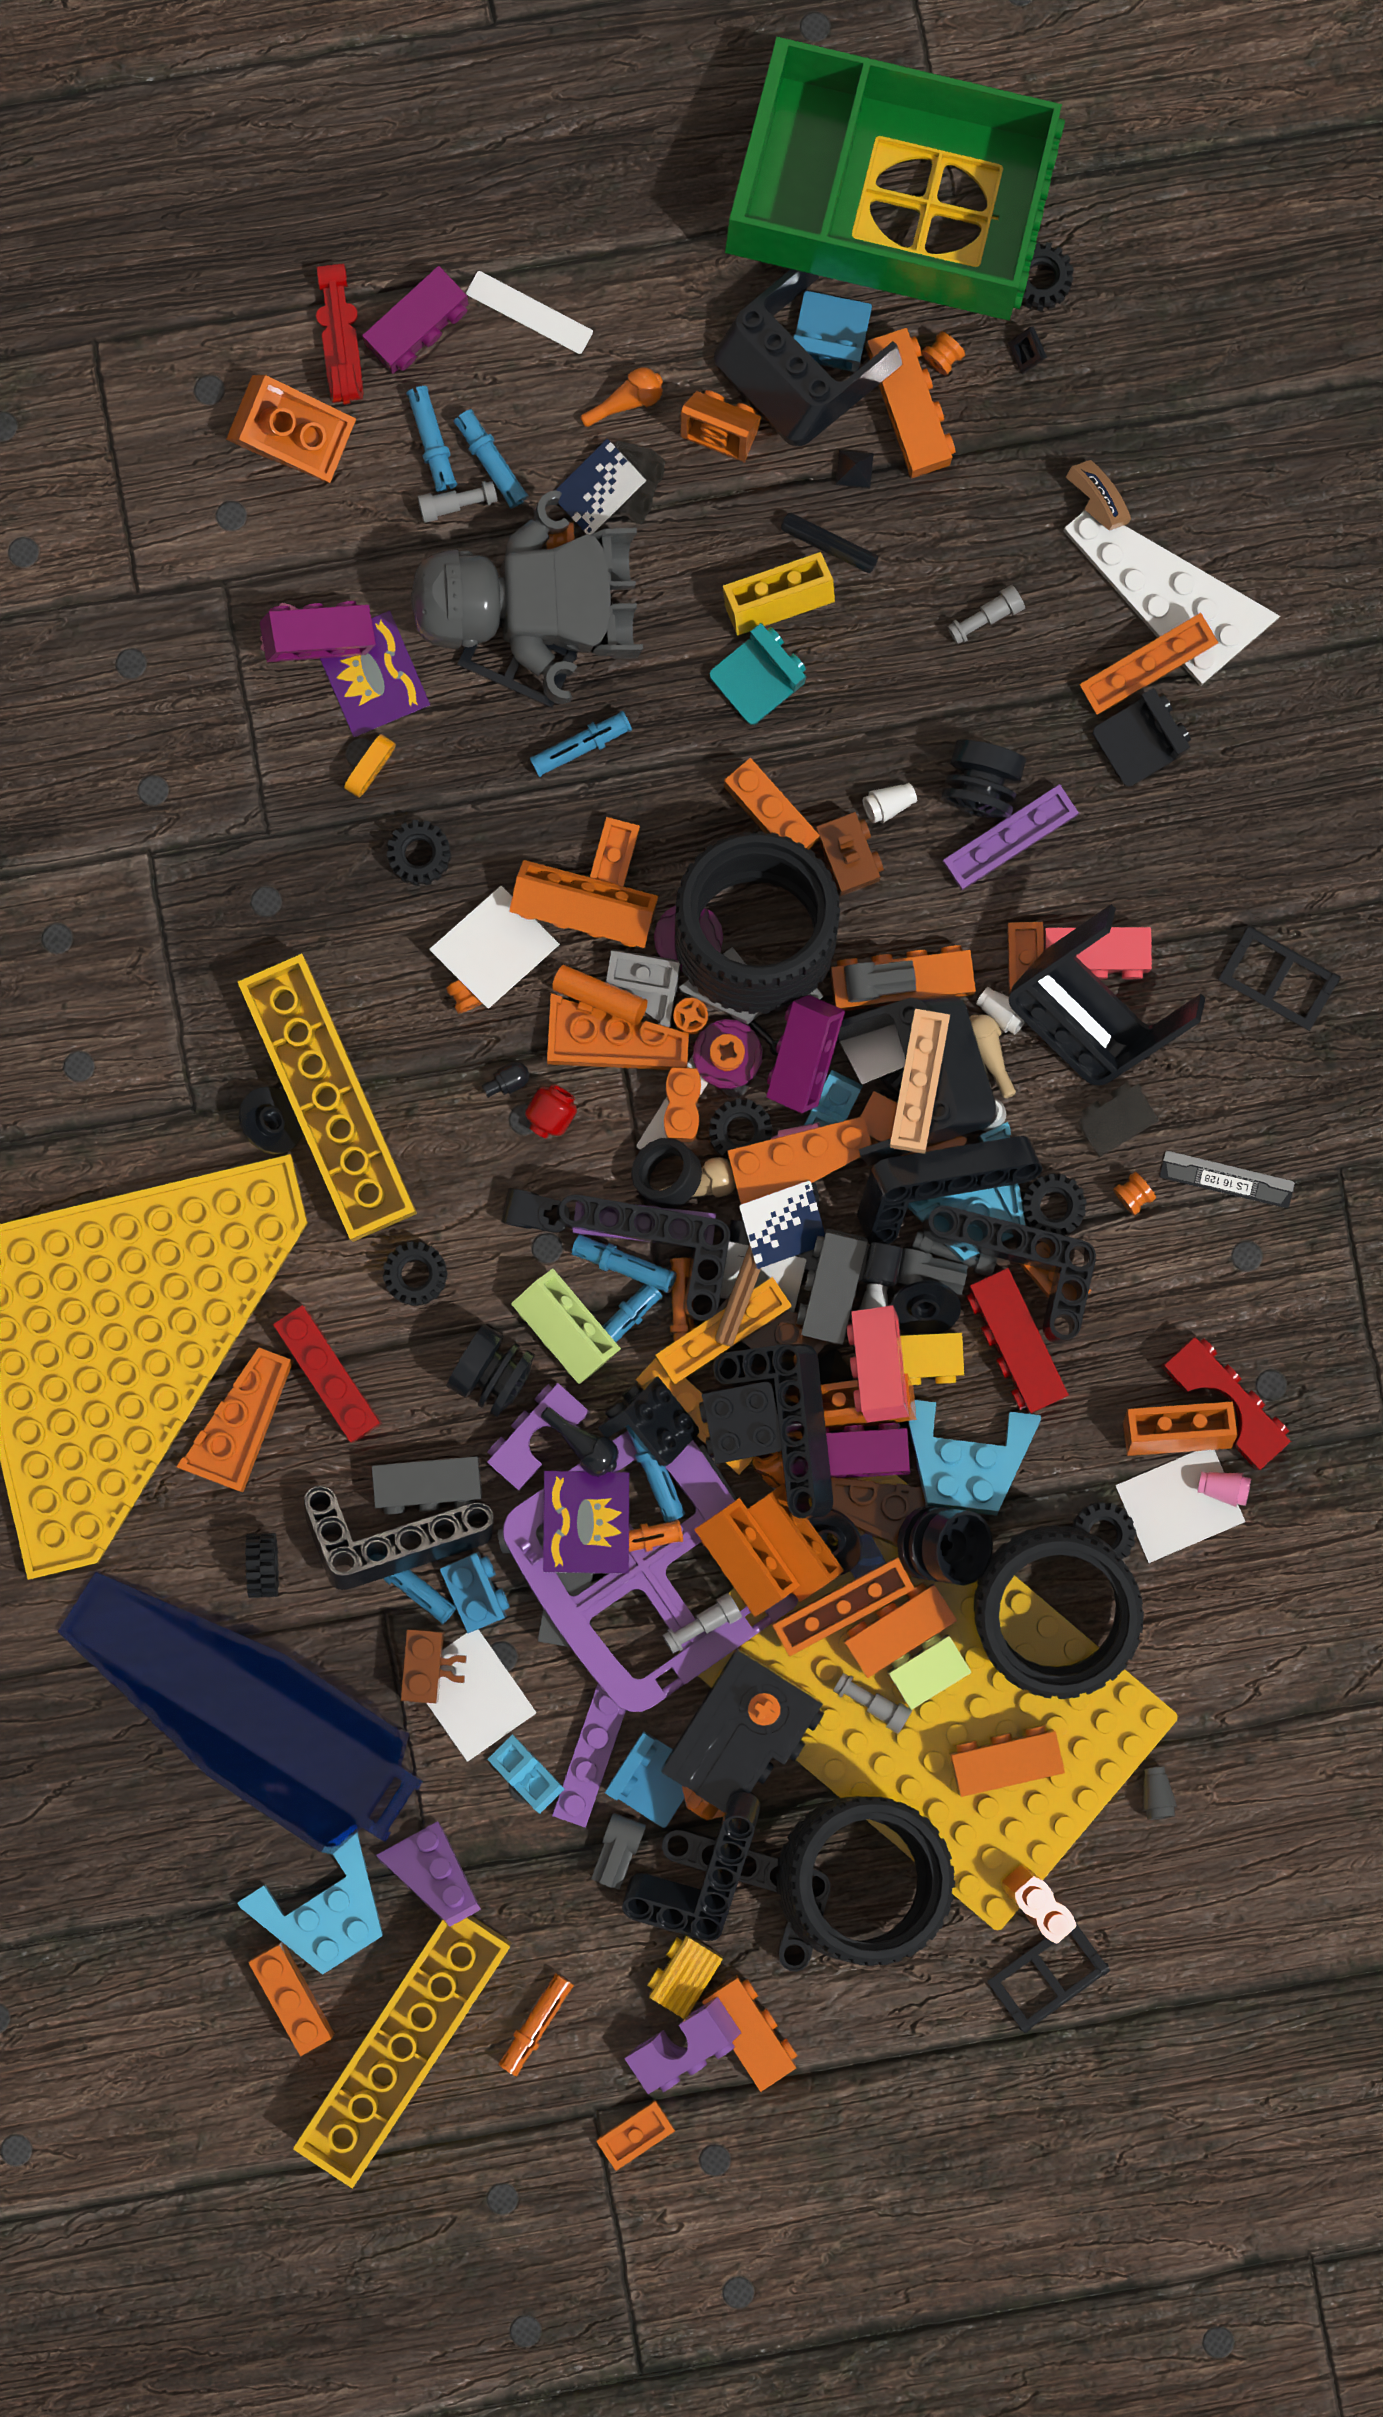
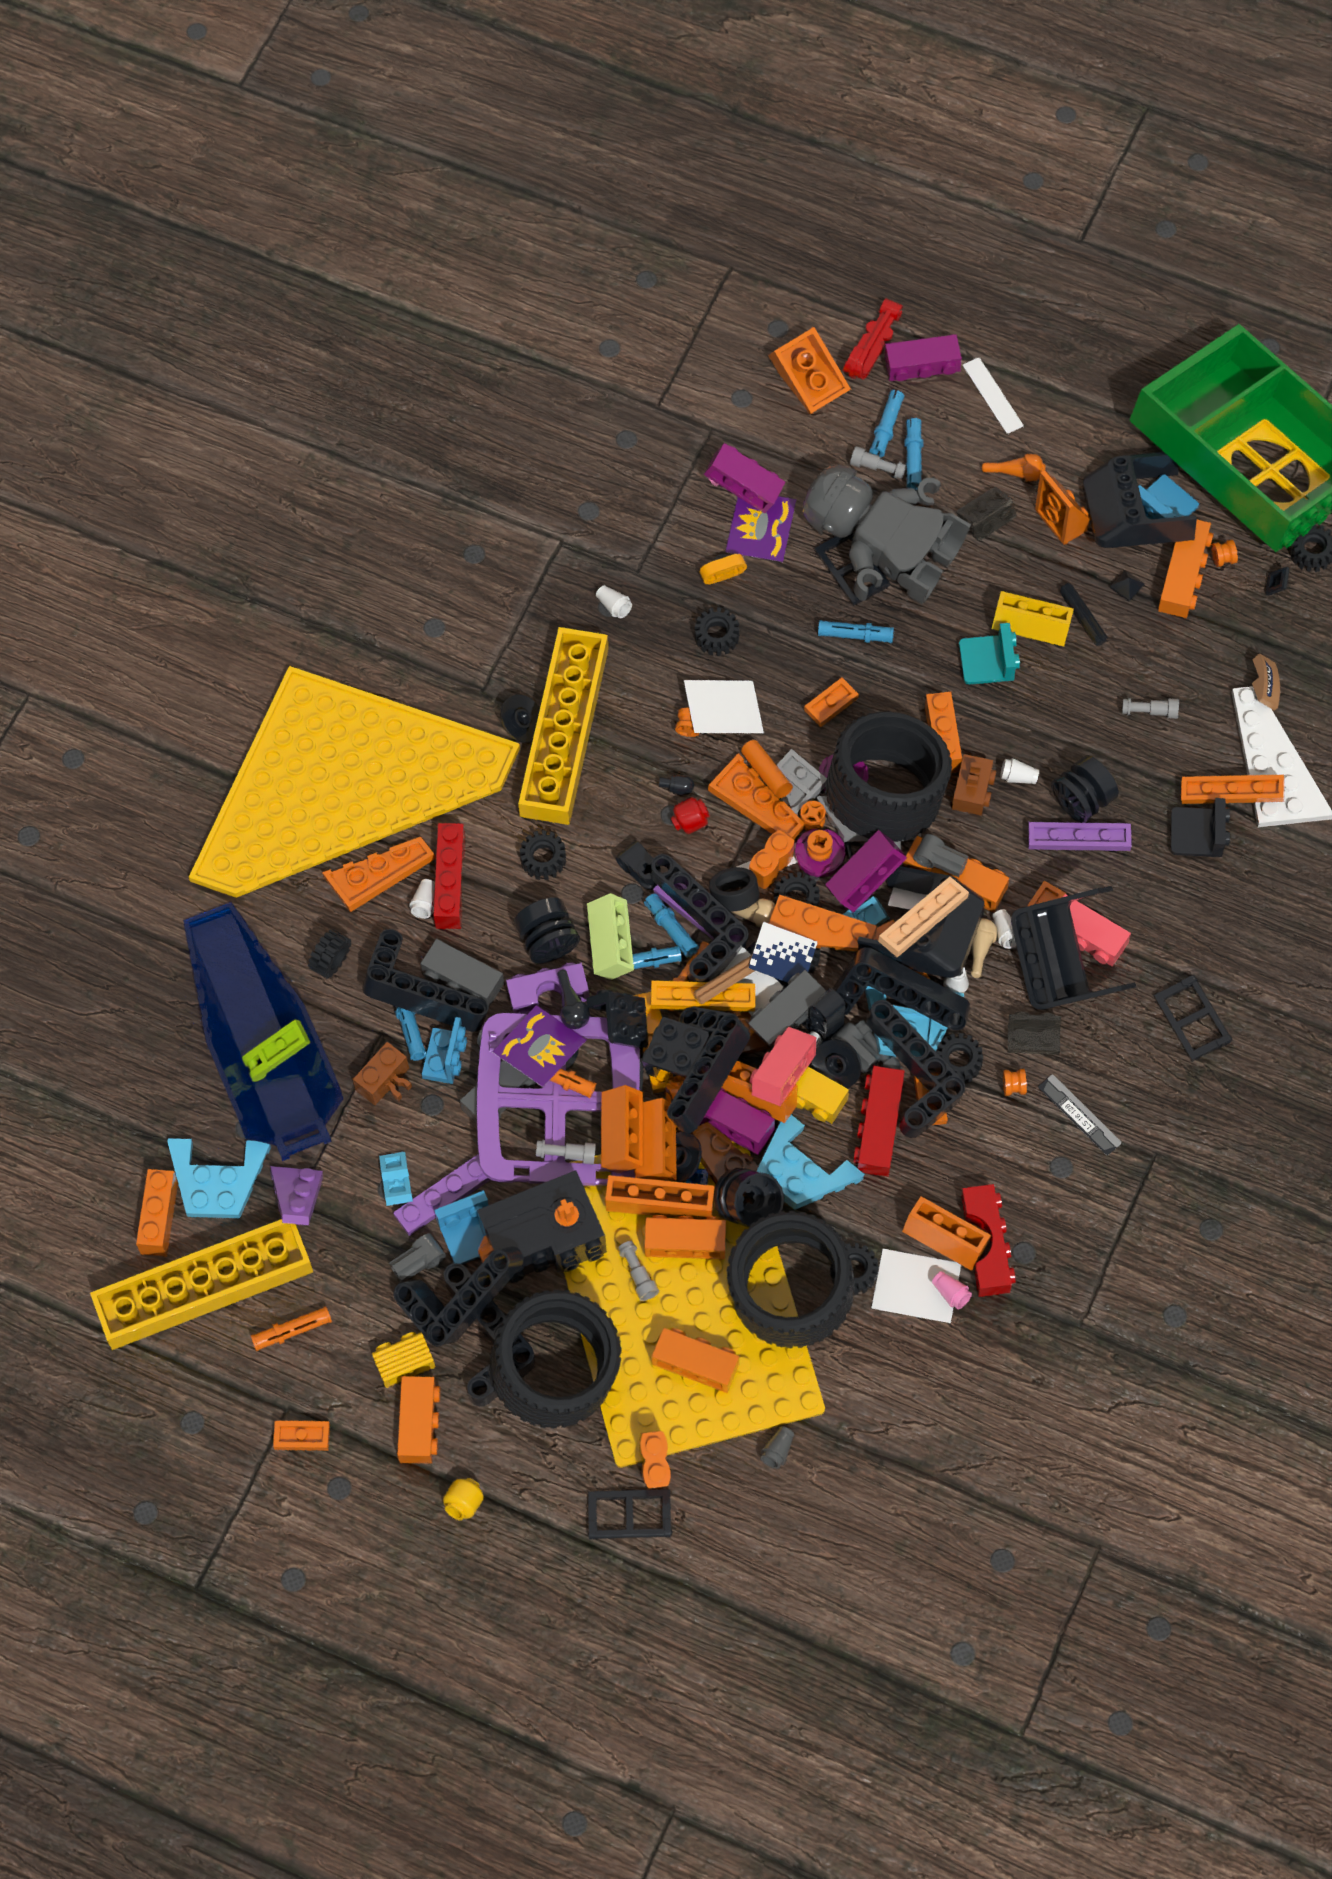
camera: 40 degrees right, 20 degrees down
(270, 894) = (614, 601): none -> white cone
(288, 1723) = (276, 1050): none -> lime plate
(317, 1420) = (423, 900): none -> white cone
(484, 1705) = (402, 1123): white sticker -> none
(583, 904) = (793, 714): orange brick -> none
(599, 487) = (968, 501): sticker -> none
(659, 1481) = (601, 1054): dark azure pin -> none
(660, 2061) = (390, 1396): medium lavender arch -> none
(861, 2085) = (463, 1498): none -> yellow head
(928, 1670) = (685, 1273): yellowish green brick -> none

